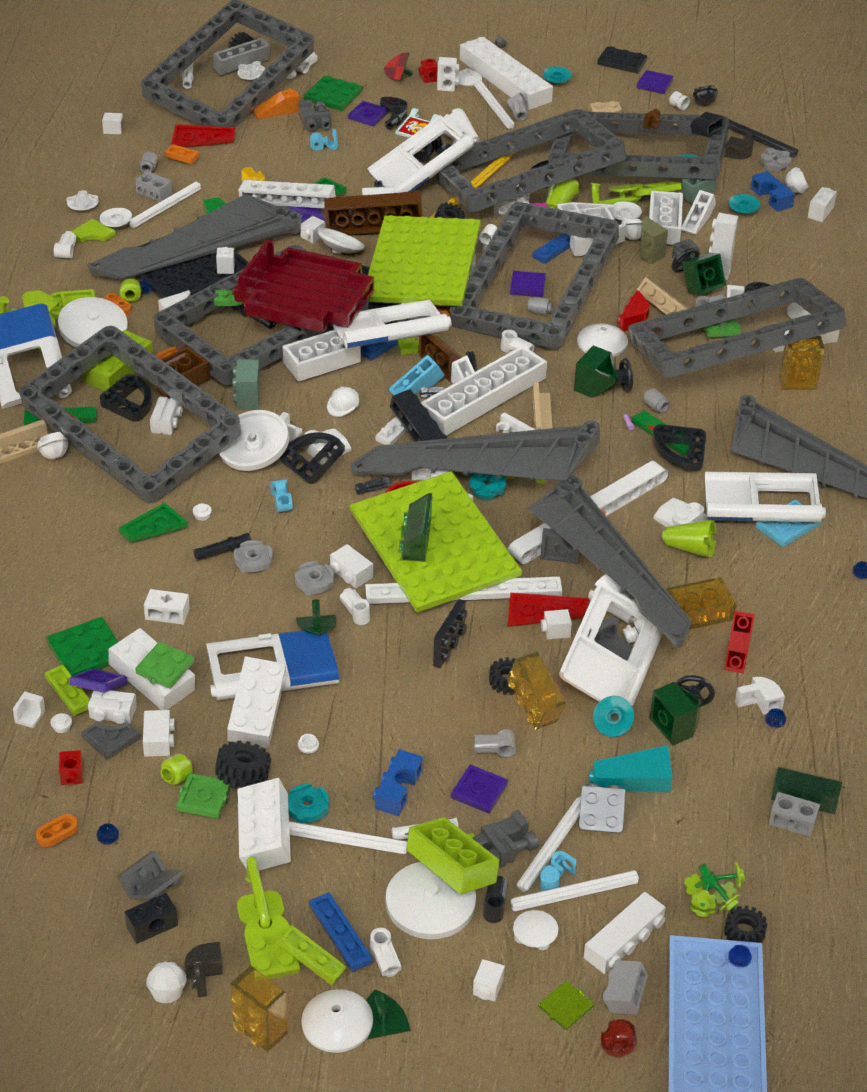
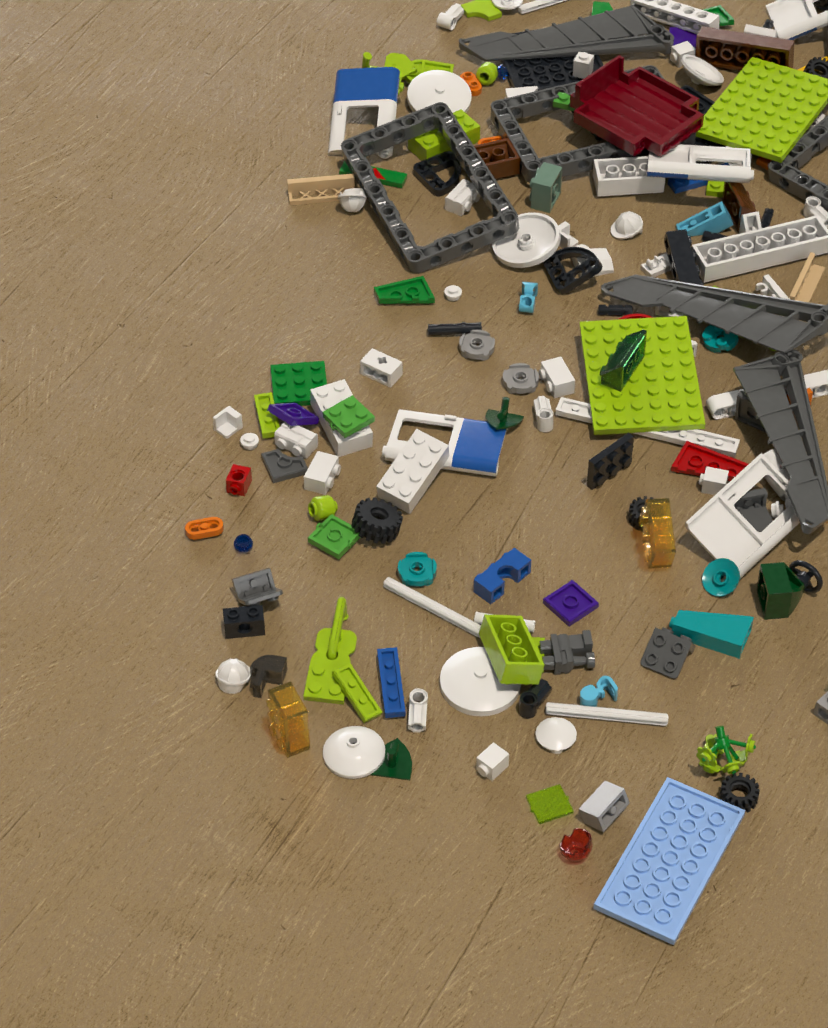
camera: 25 degrees right, 5 degrees up
(264, 824) = (370, 574): white brick -> none
(308, 743) = (443, 520): white plate -> none
(500, 743) = (608, 570): light grey piece -> none
(550, 846) = (605, 670): white axle -> none
(625, 932) = (630, 761): white brick -> none
(740, 956) = (717, 813): clear blue plate -> none

